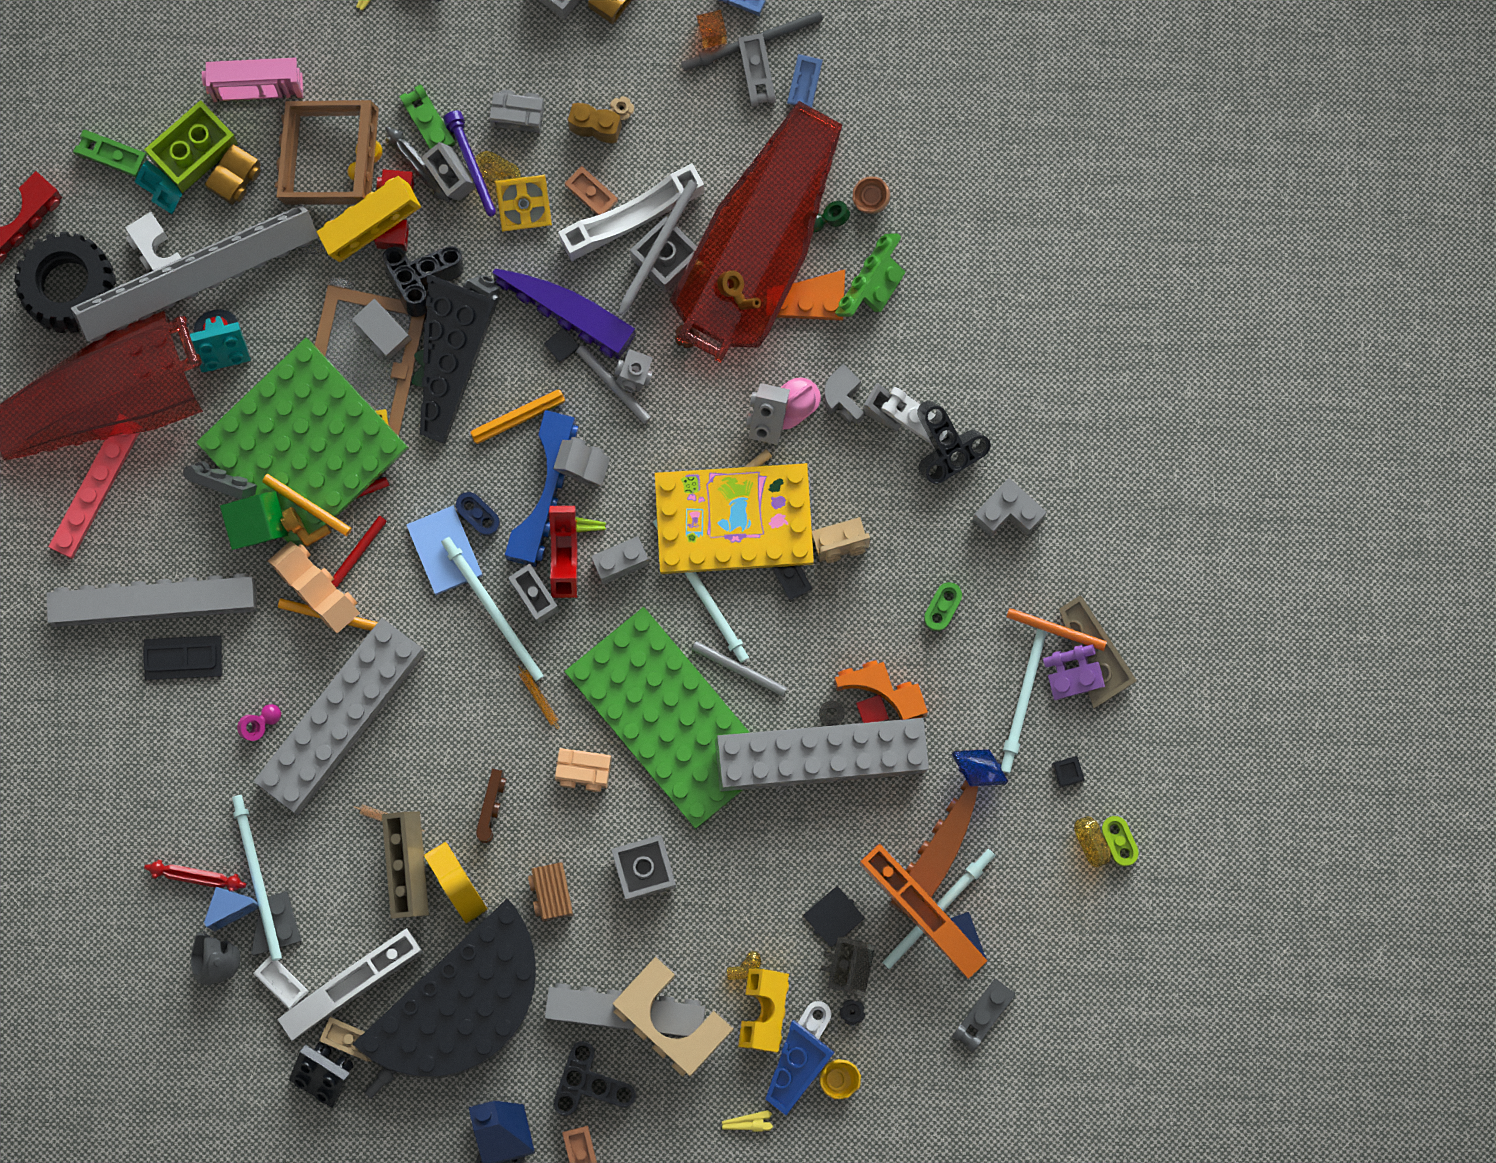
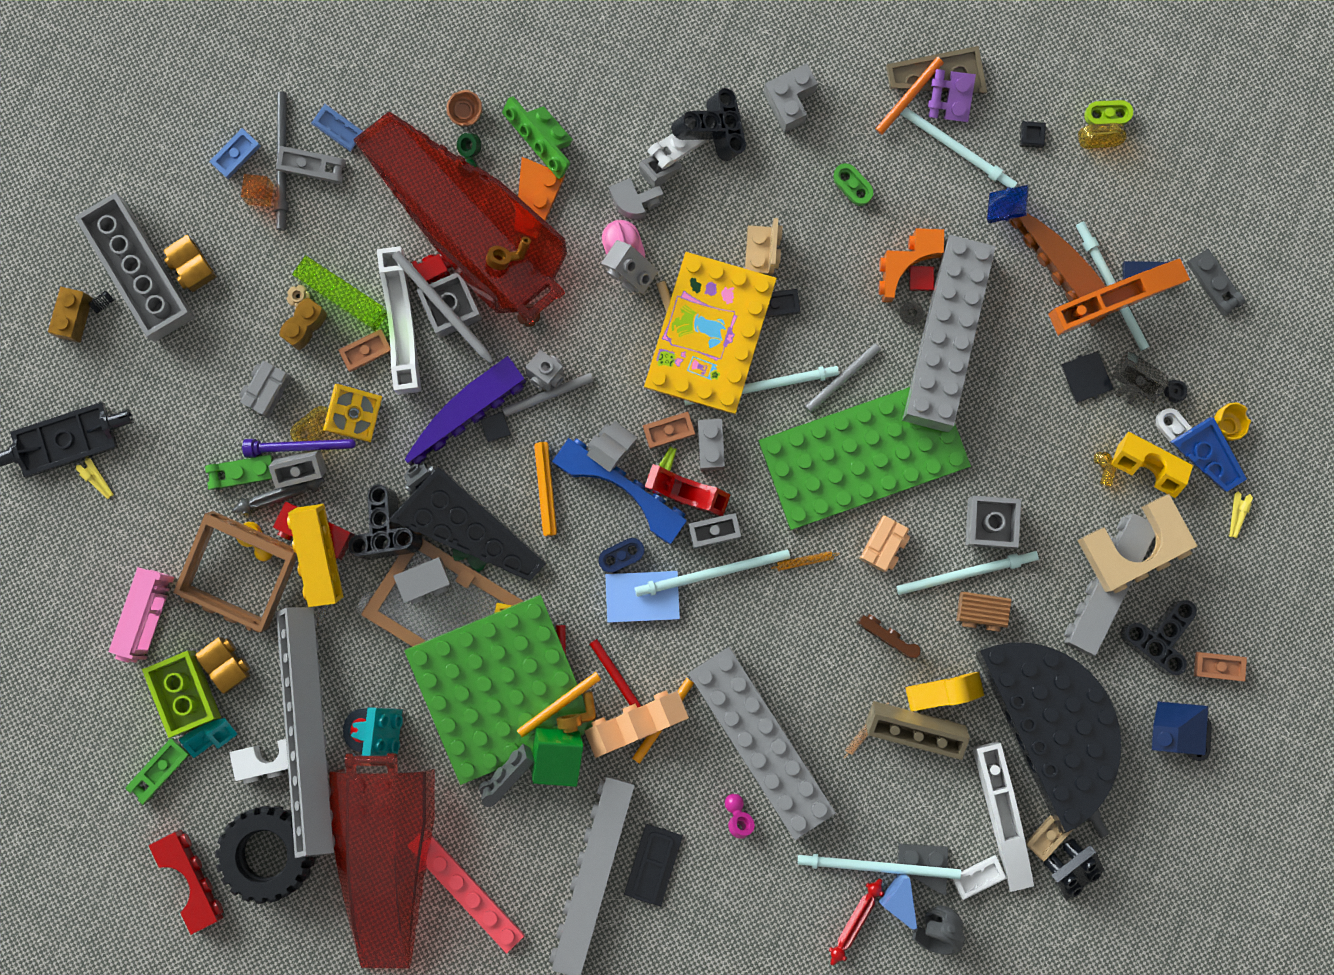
camera: 70 degrees left, 5 degrees up
(613, 905) = (1012, 561): none -> light aqua bar
(620, 514) = (668, 430): none -> nougat plate
(638, 146) = (340, 293): none -> clear neon green brick
(693, 222) = (432, 268): none -> red brick

